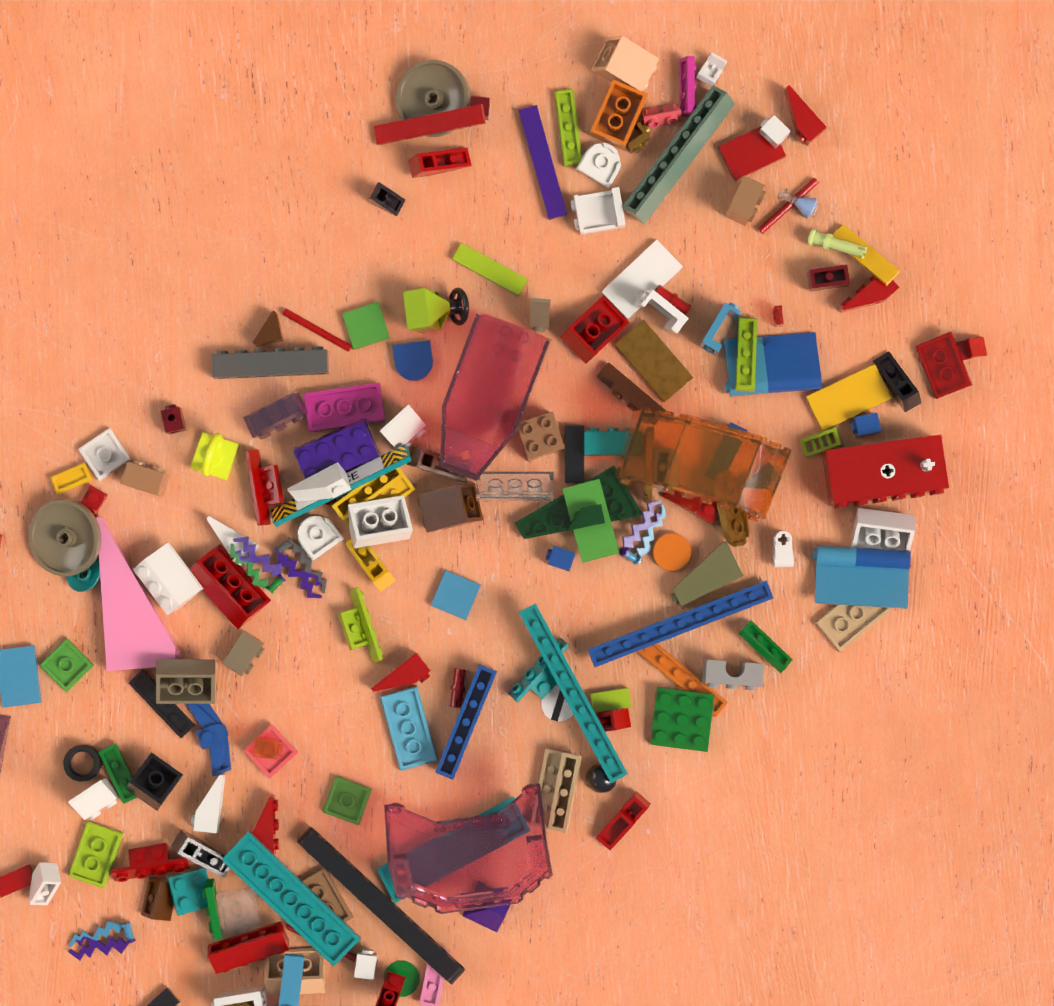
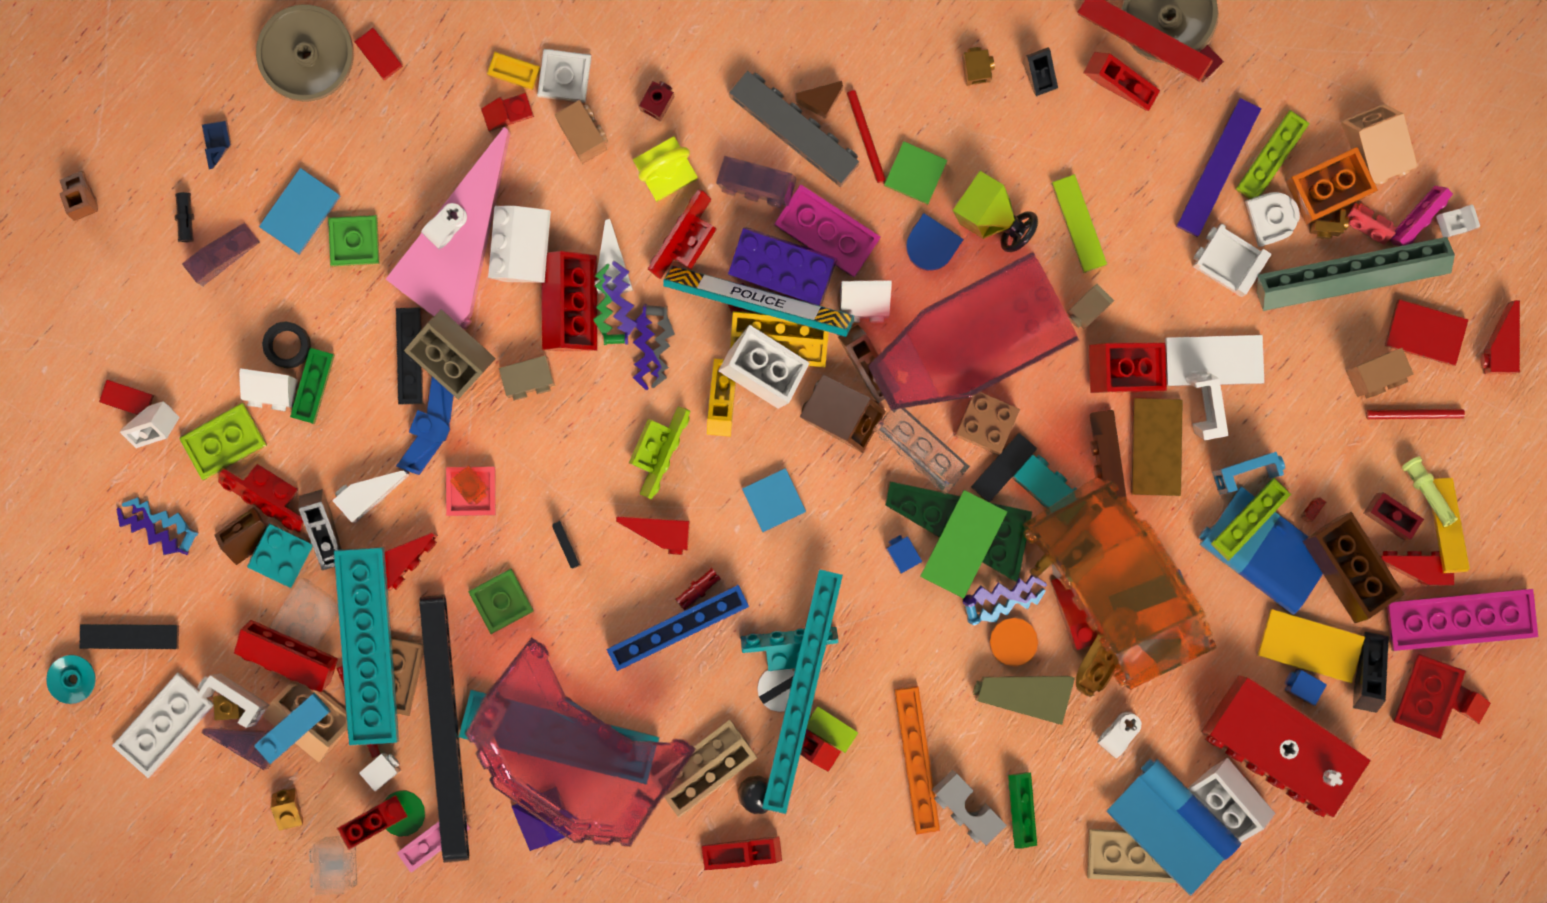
camera: 35 degrees right, 0 degrees up
(64, 537) = (458, 120): dark tan dish -> none
(86, 580) = (445, 169): teal dish -> none
(113, 609) = (443, 226): none -> white piece
(154, 781) = (337, 421): black brick -> none
(209, 892) = (283, 589): green plate -> none
(317, 536) = (694, 329): white tile -> none
(322, 485) = (742, 285): white slope -> none
(346, 229) = (977, 66): none -> pearl gold brick
(356, 732) = (566, 544): none -> black tile
(408, 728) = (618, 585): medium azure tile -> none
(587, 517) = (963, 537): dark green slope -> none
(673, 299) = (1230, 414): red pin -> none
(680, 624) = (961, 717): blue plate -> none
(682, 719) = (883, 808): green plate -> none
(774, 130) = (1466, 331): white brick -> none
(807, 206) = (1432, 429): piece -> none
(831, 329) = (1353, 567): none -> reddish brown brick
(837, 437) = (1267, 671): lime slope -> none
(923, 303) = (1462, 619): none -> dark pink plate

